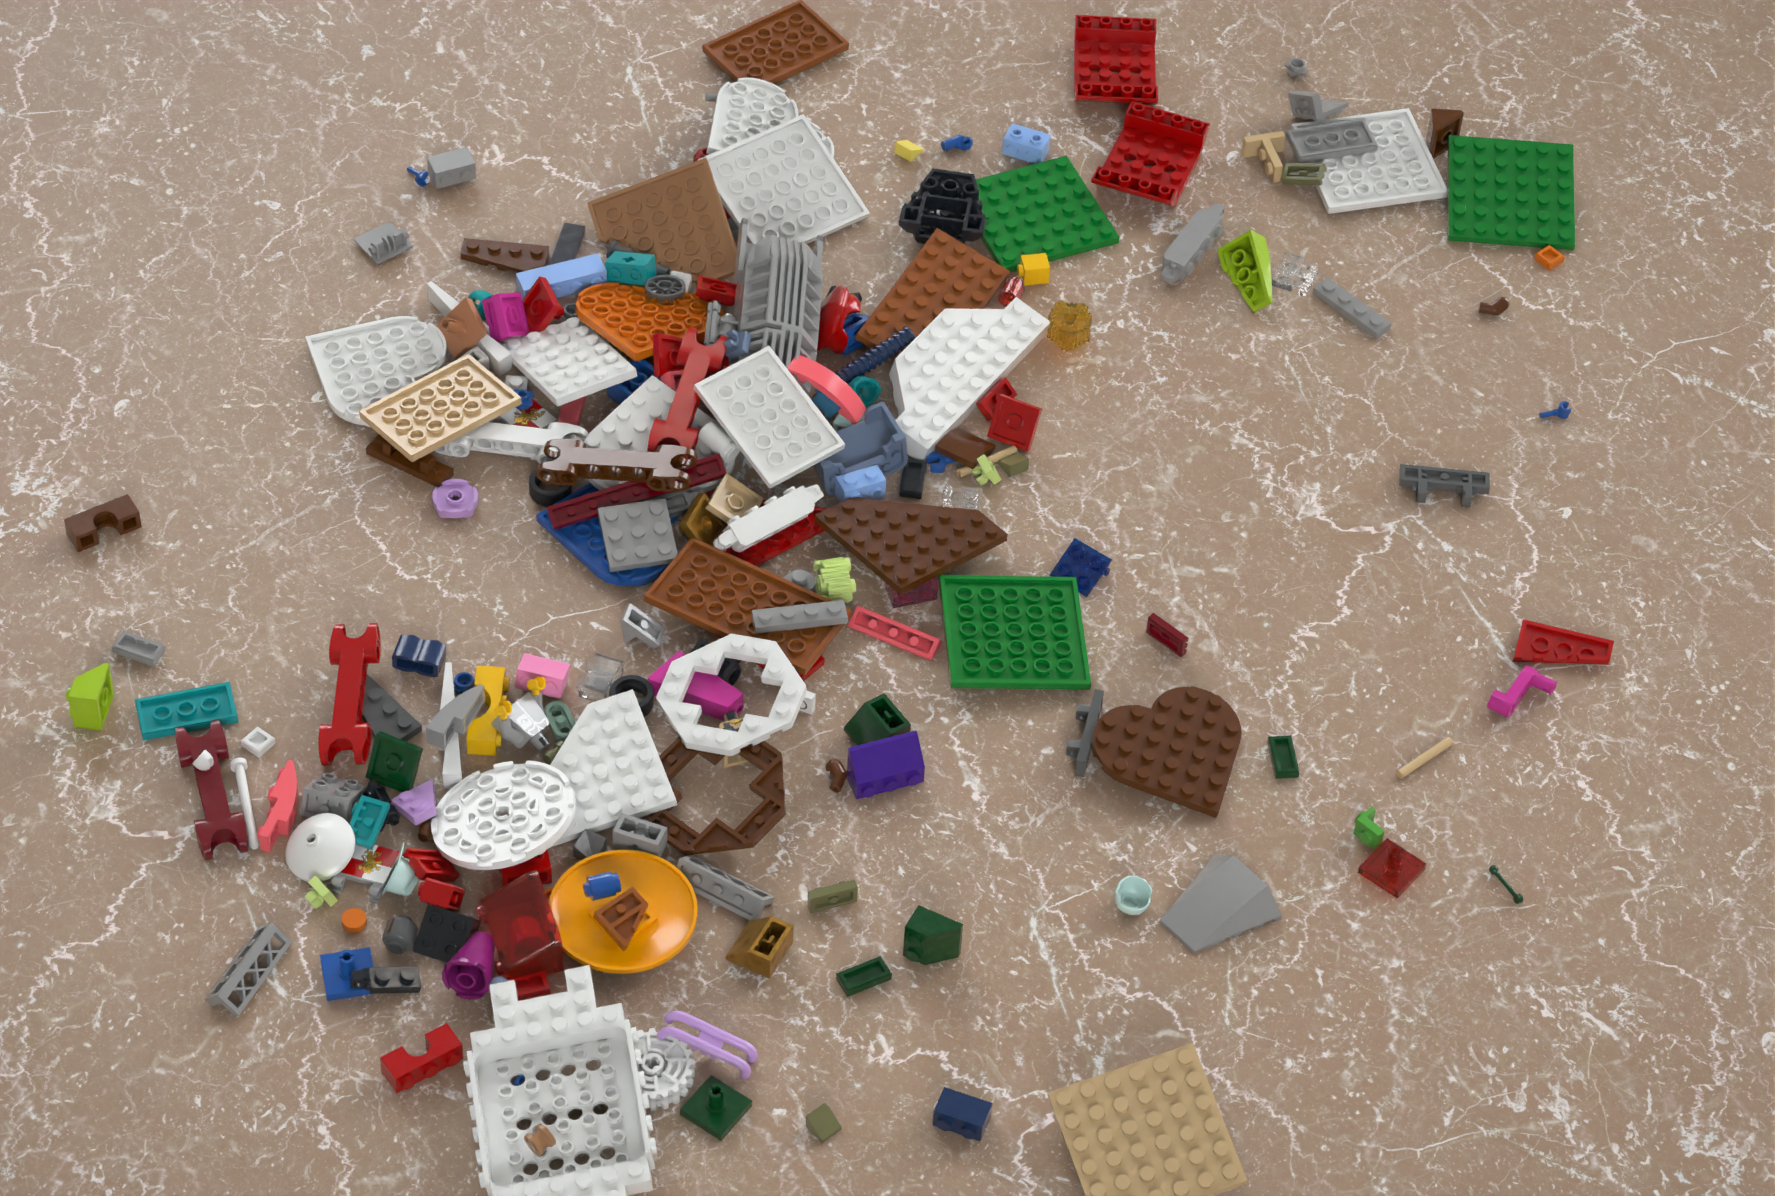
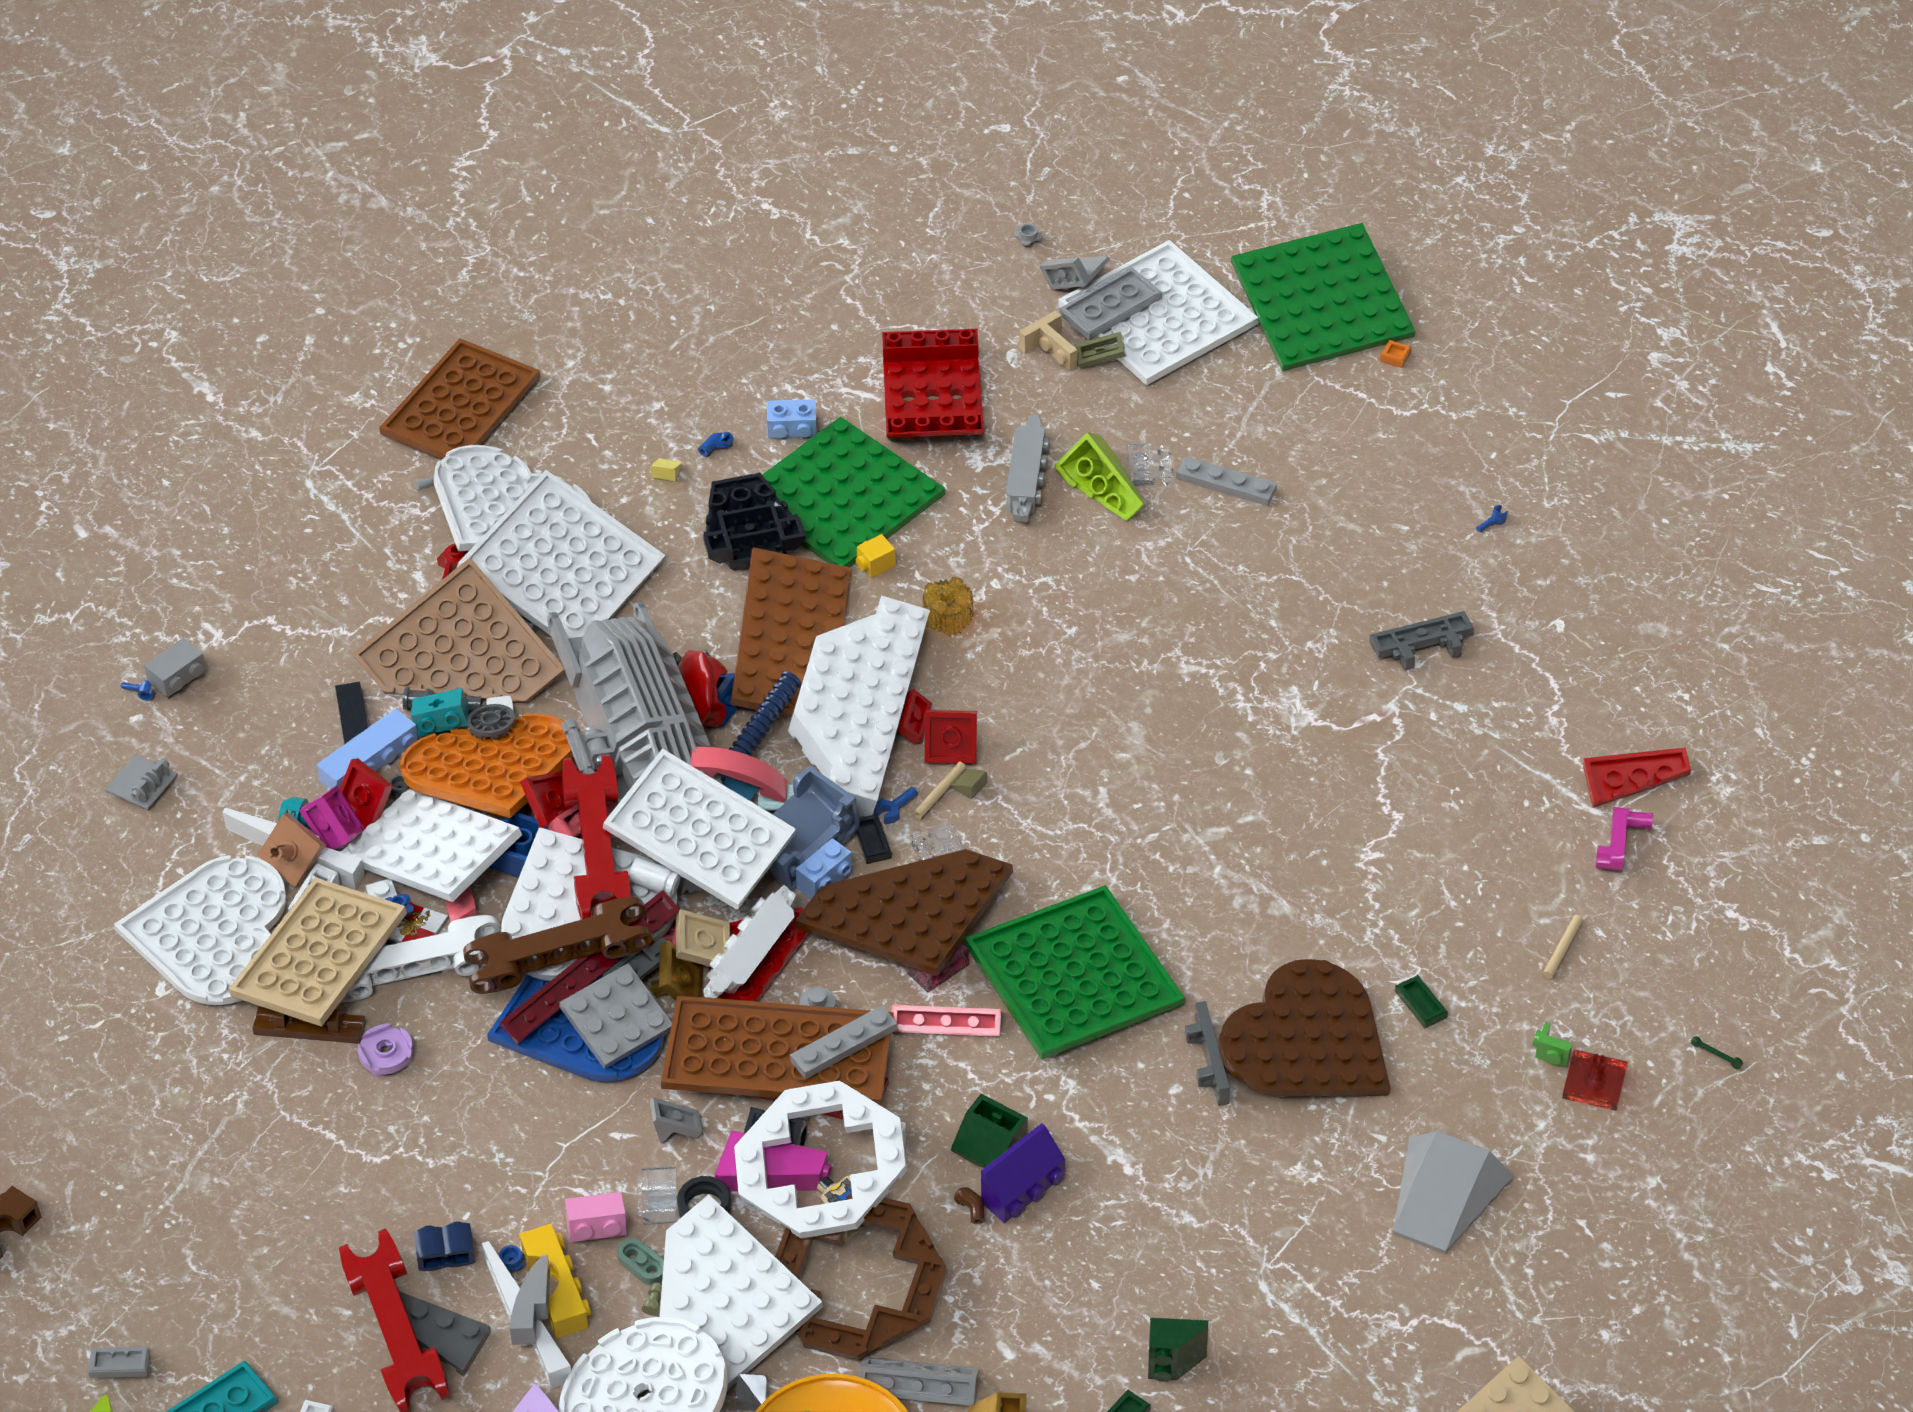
camera: 20 degrees left, 0 degrees up
(393, 762) = (487, 1381): dark green tile -> none
(505, 255) = (290, 746): reddish brown wing -> none
(525, 718) = (604, 1275): light grey torso -> none
(543, 497) = (480, 1011): black tyre -> none
(639, 835) = (802, 1358): light grey brick -> none
(718, 290) = (549, 703): red plate -> none
(737, 343) = (624, 758): sand blue tile -> none
(832, 896) = (1043, 1342): olive plate -> none
(834, 579) = (856, 985): yellowish green brick -> none
(866, 388) = (773, 754): teal piece -> none
(964, 447) = (909, 784): reddish brown slope -> none
(987, 470) = (948, 800): yellowish green tile -> none
(1012, 288) = (866, 591): clear red brick -> none
(1084, 564) = (1104, 866): clear blue hinge -> none
(1115, 46) = (830, 275): red slope -> none
(1133, 895) = (1354, 1215): light aqua hair -> none
(1167, 634) = (1233, 913): dark red tile -> none
(1441, 125) = (1217, 250): reddish brown slope -> none
(1494, 308) = (1372, 428): reddish brown arm -> none

